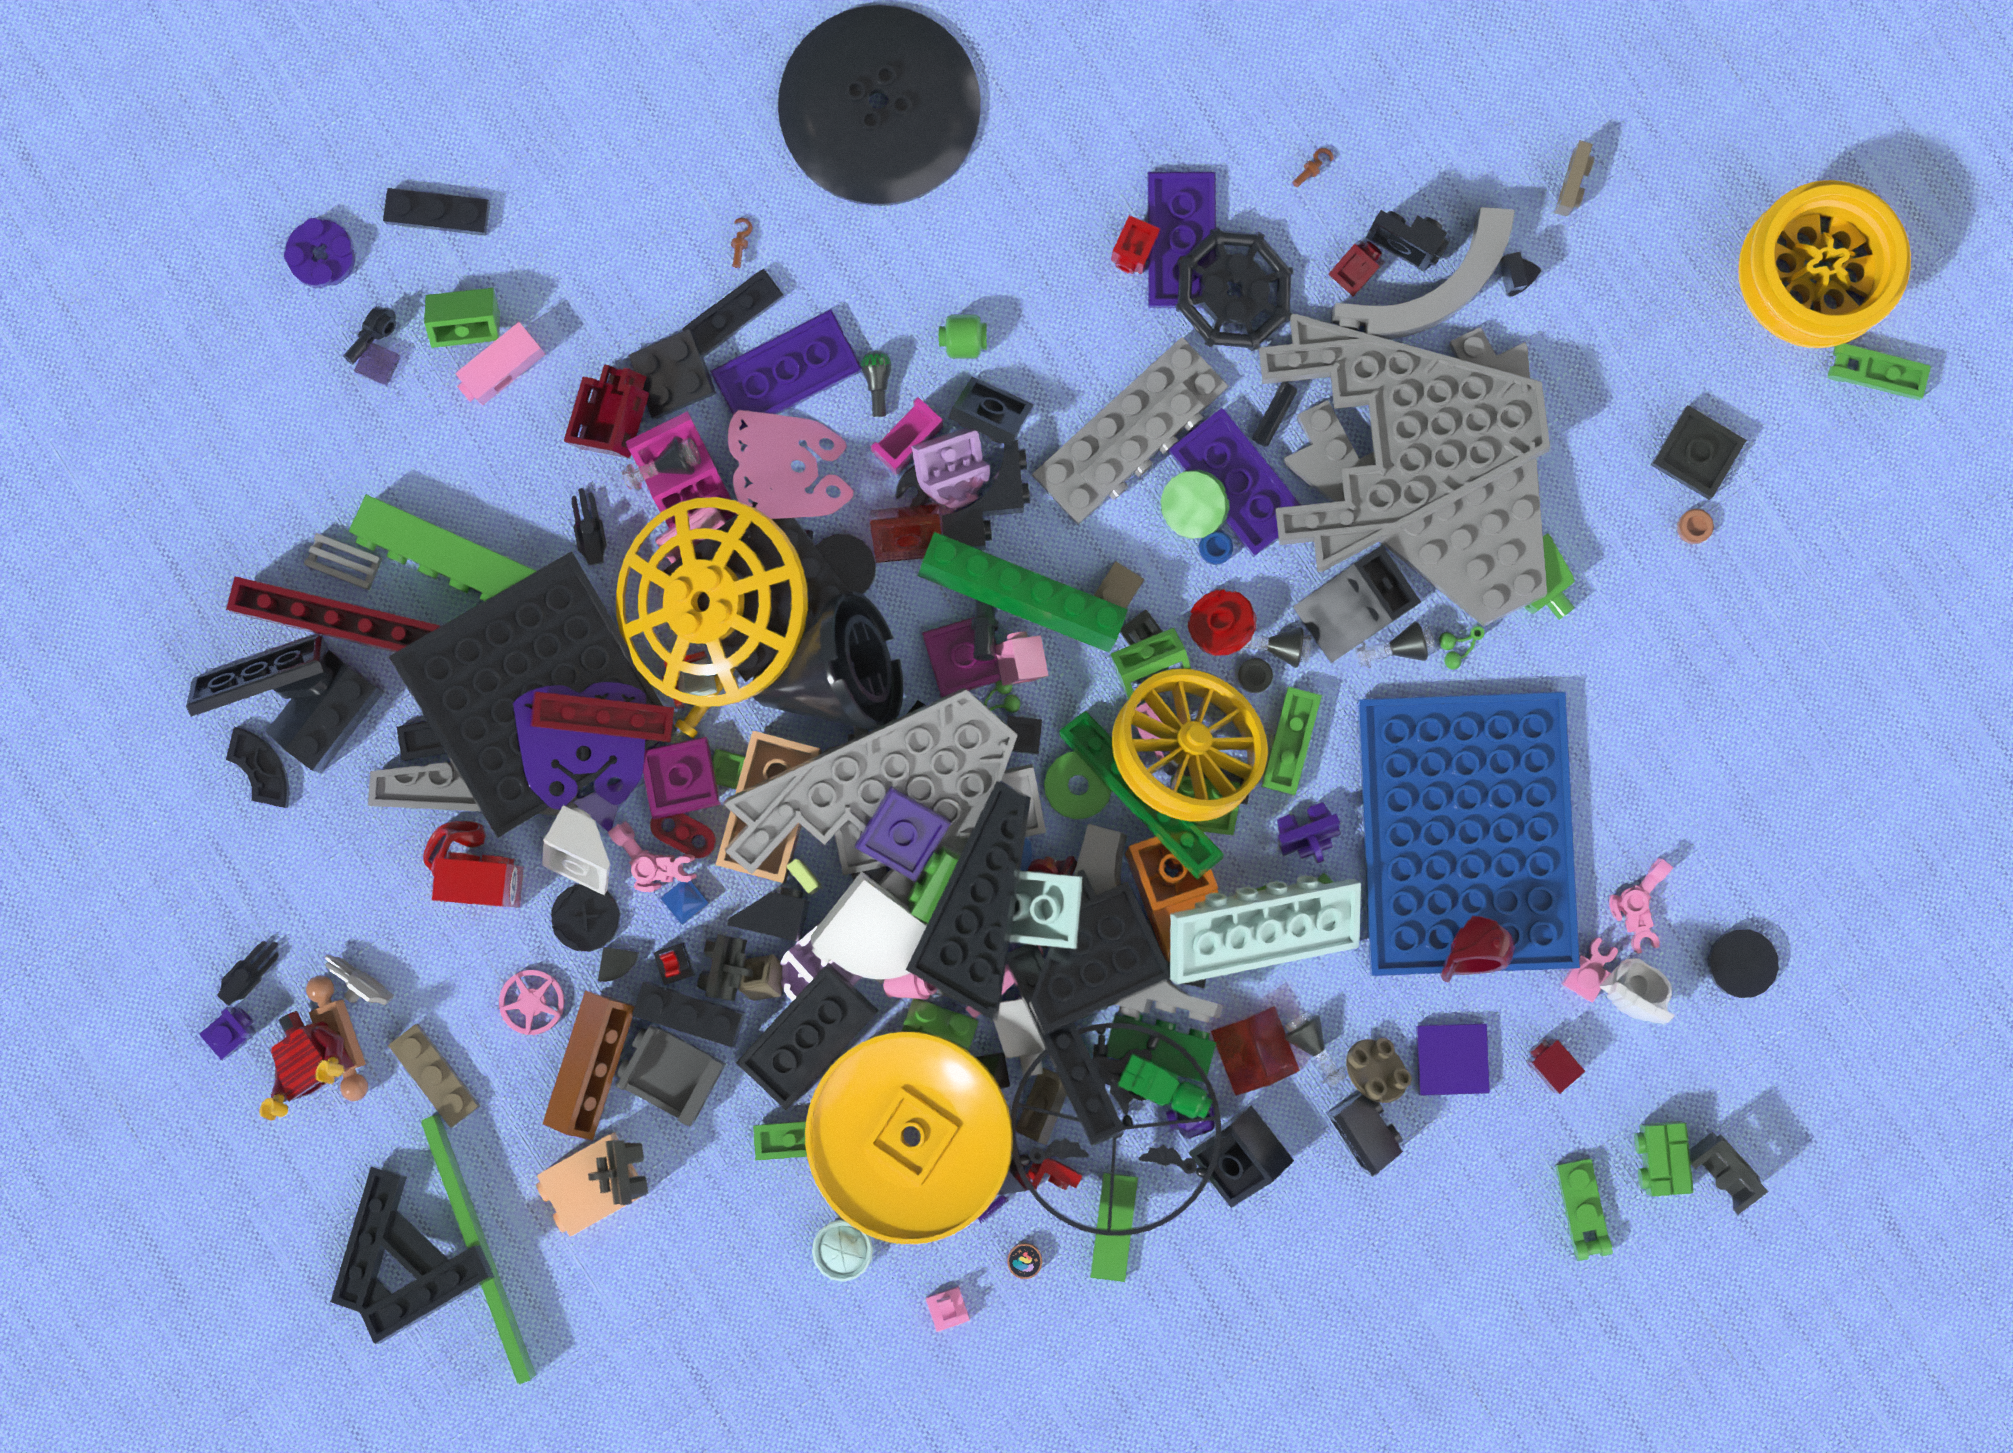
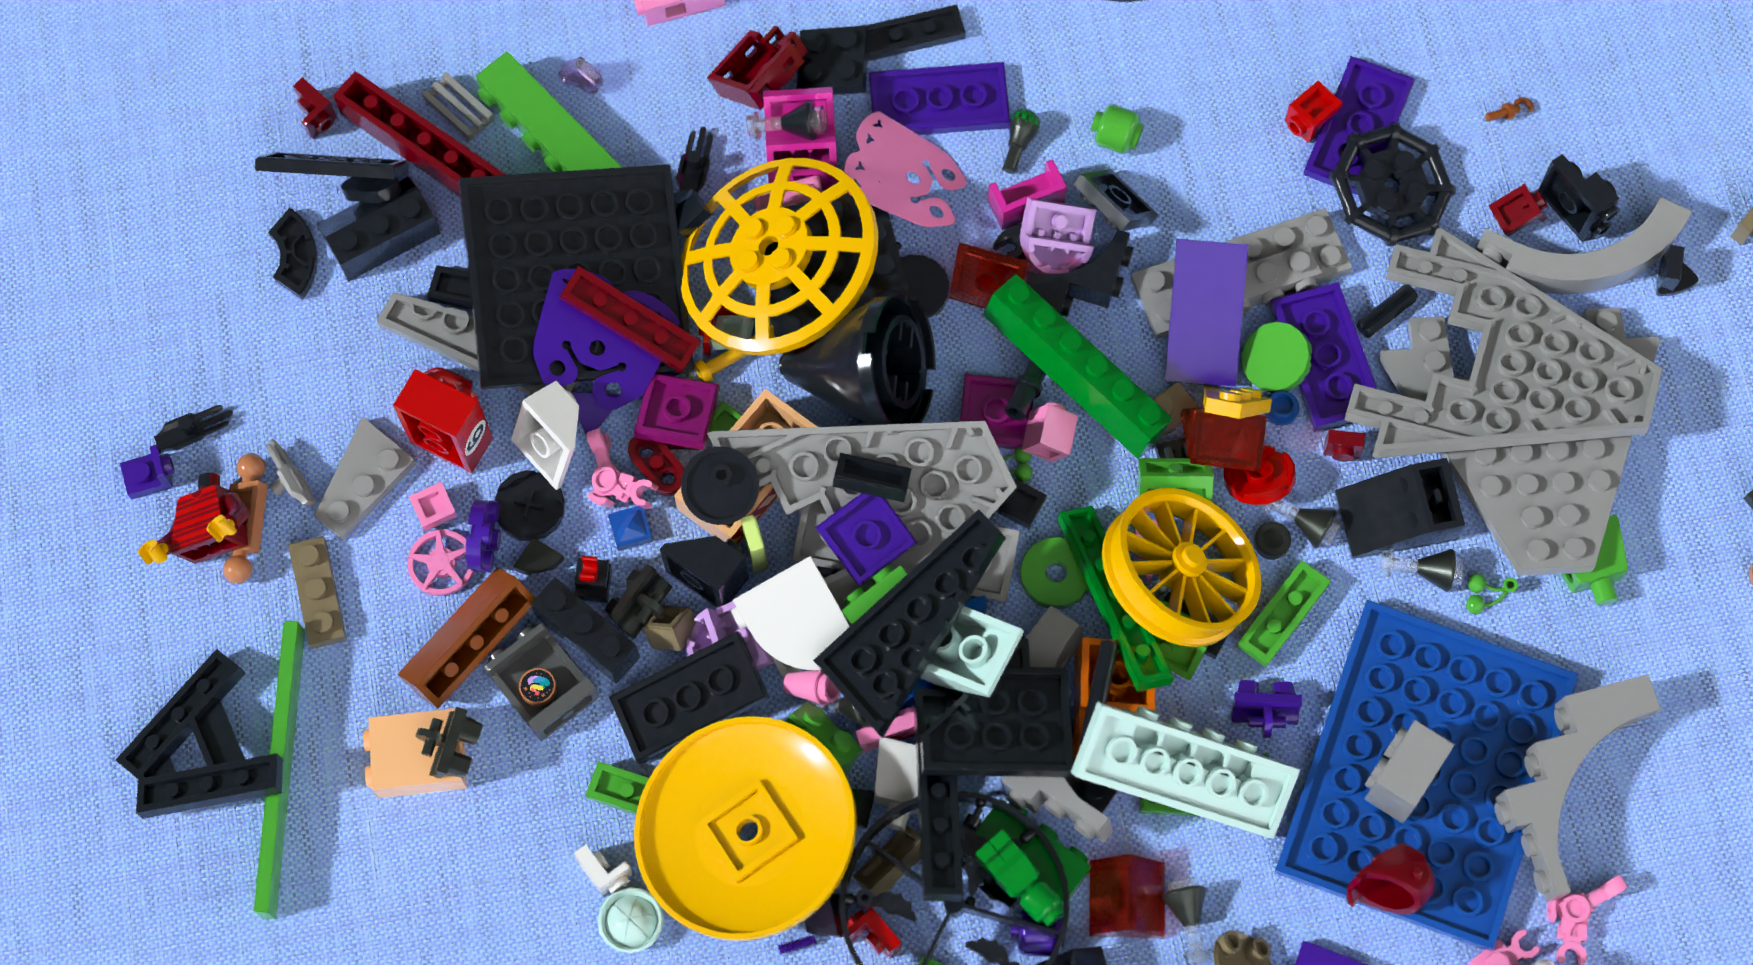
camera: 25 degrees right, 15 degrees down
(205, 617) = (317, 107): none -> dark red bracket
(424, 955) = (362, 479): none -> light grey wing
(444, 484) = (581, 74): none -> clear purple tile
(500, 956) = (433, 506): none -> bright pink plate
(560, 966) = (483, 535): none -> dark purple plate
(608, 584) = (690, 211): none -> black slope
(670, 1081) = (537, 687): none -> tile
(756, 848) = (720, 485): none -> black piece
(792, 1219) = (595, 868): none -> white bracket
(888, 785) = (871, 477): none -> black tile
(1116, 490) = (1206, 312): none -> dark purple tile
(1163, 887) = (1101, 680): none -> black piece
(1175, 572) = (1235, 402): none -> yellow wing
(1178, 603) = (1224, 439): none -> clear red slope
(1285, 563) = (1343, 445): none -> dark red plate
(1454, 850) = (1412, 765): none -> light grey brick
(1574, 786) = (1553, 762): none -> light grey arch

